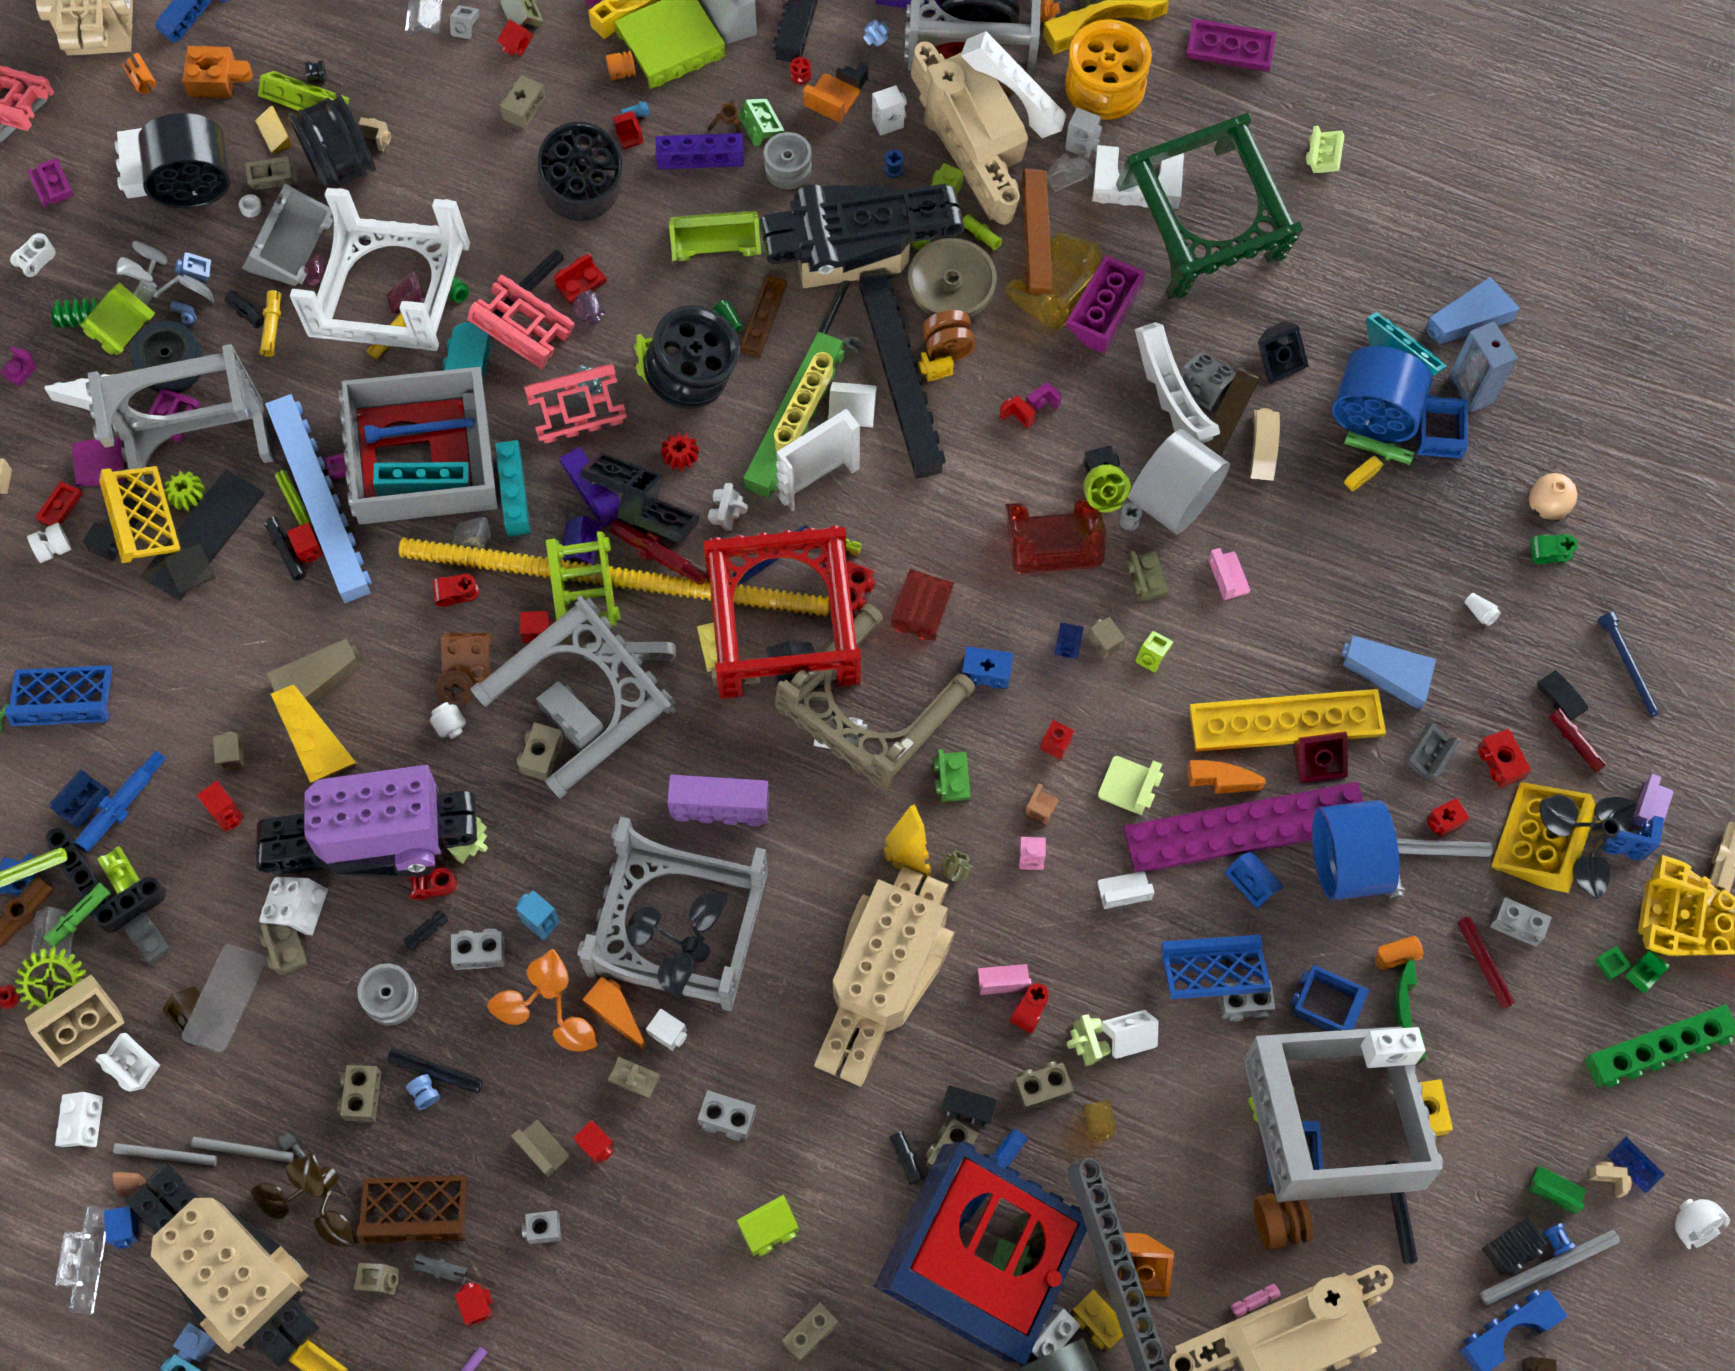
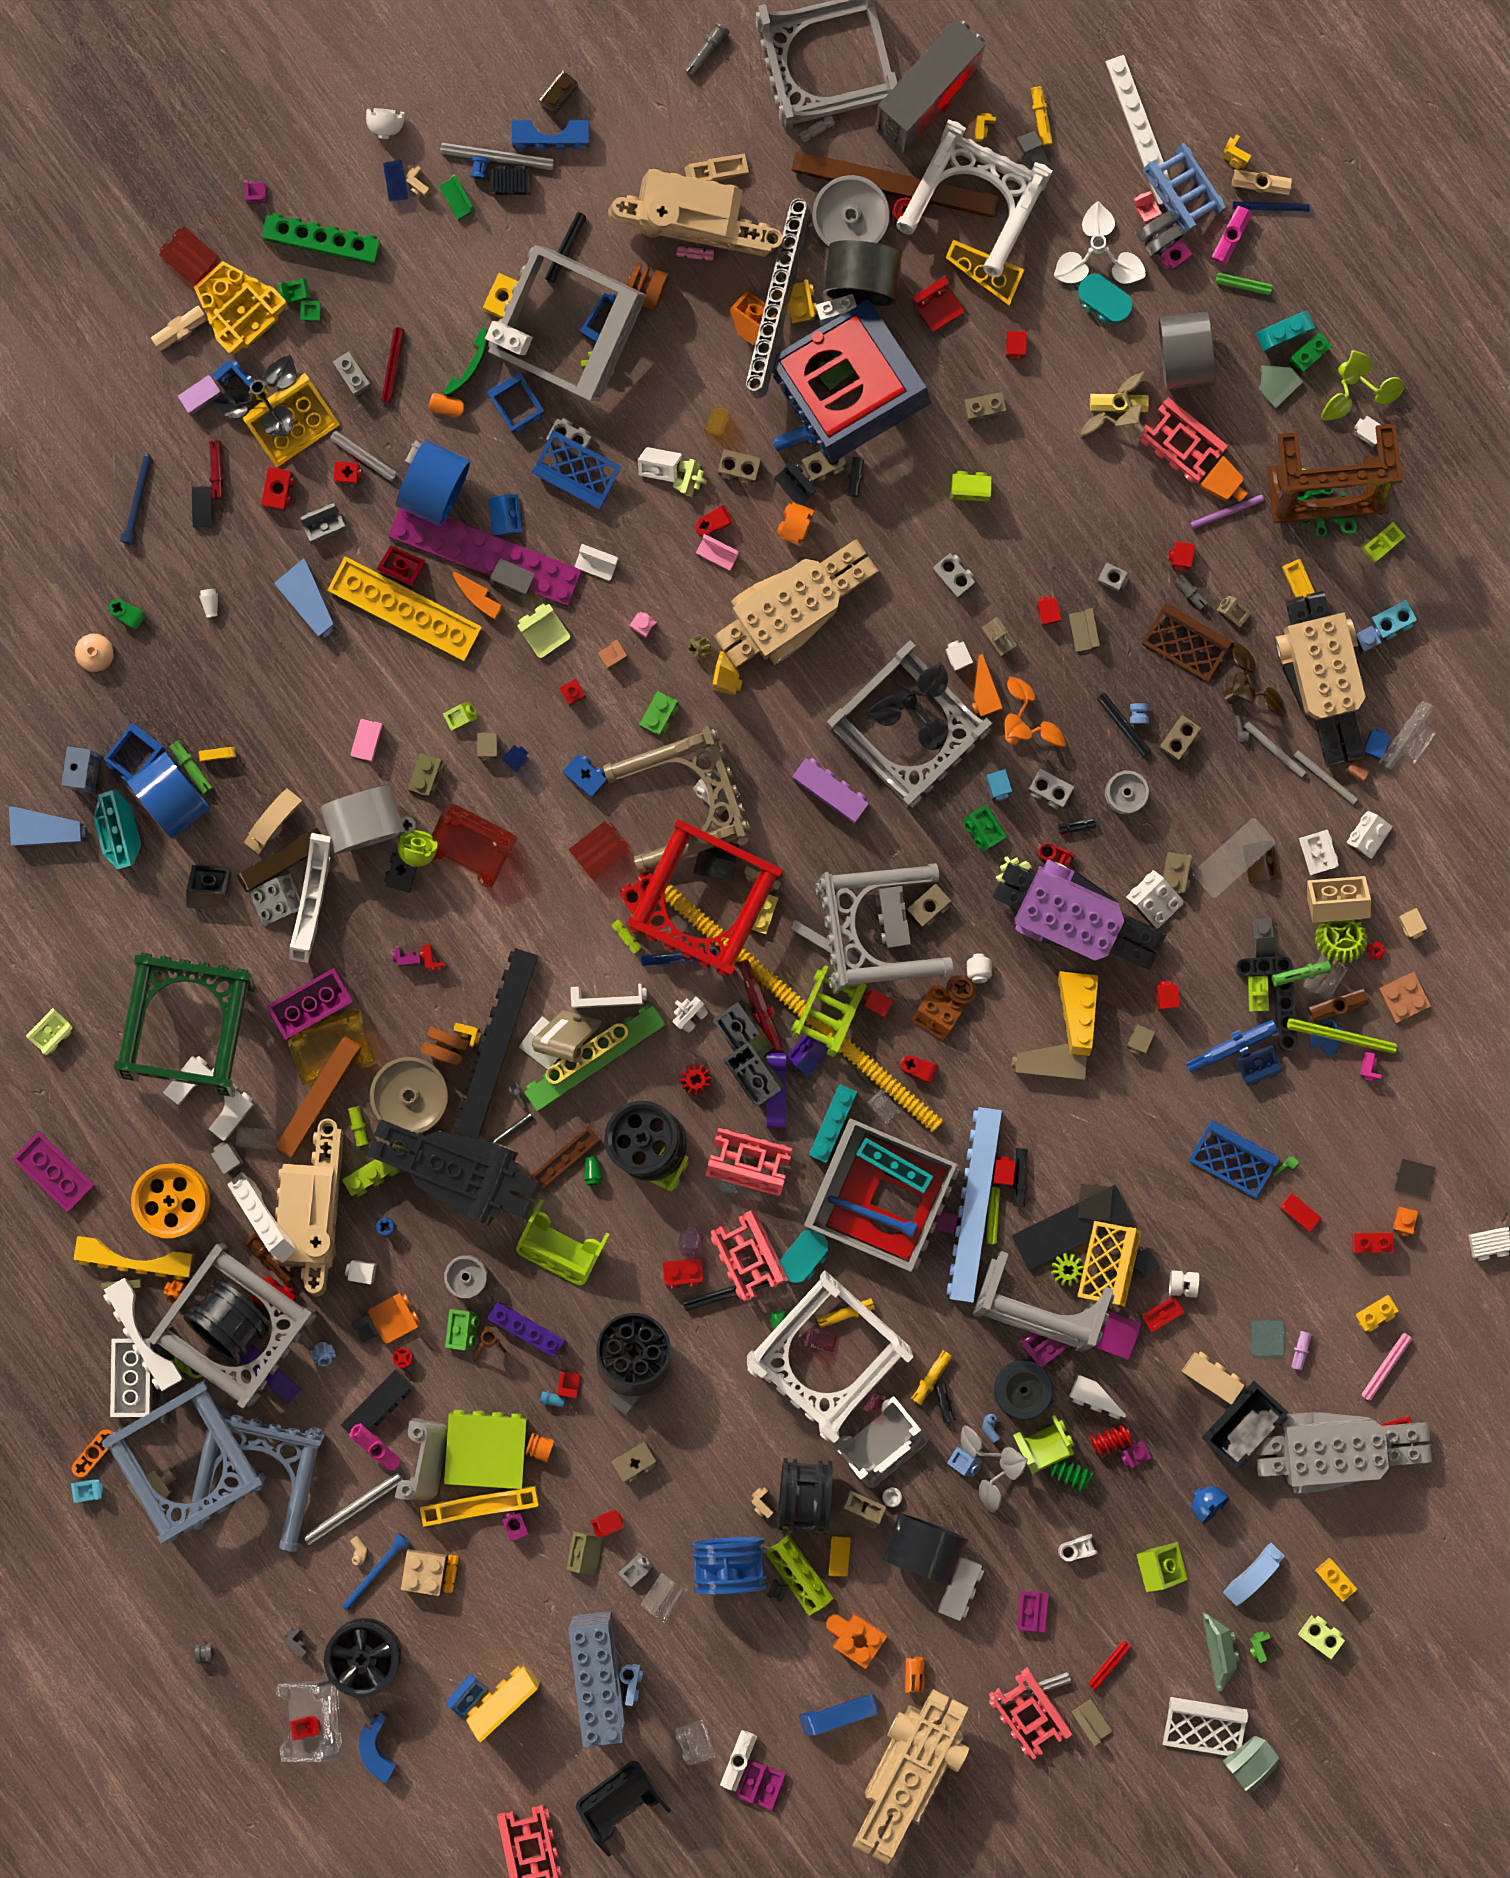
camera: 150 degrees left, 20 degrees up
(48, 363) = (1111, 1440): none -> red piece
(371, 51) = (729, 1565): none -> blue wheel
(527, 865) = (984, 828): none -> green bracket
(834, 394) = (565, 1036): none -> dark tan door
(939, 1058) = (796, 523): none -> orange brick
(1201, 815) = (511, 578): none -> dark grey panel

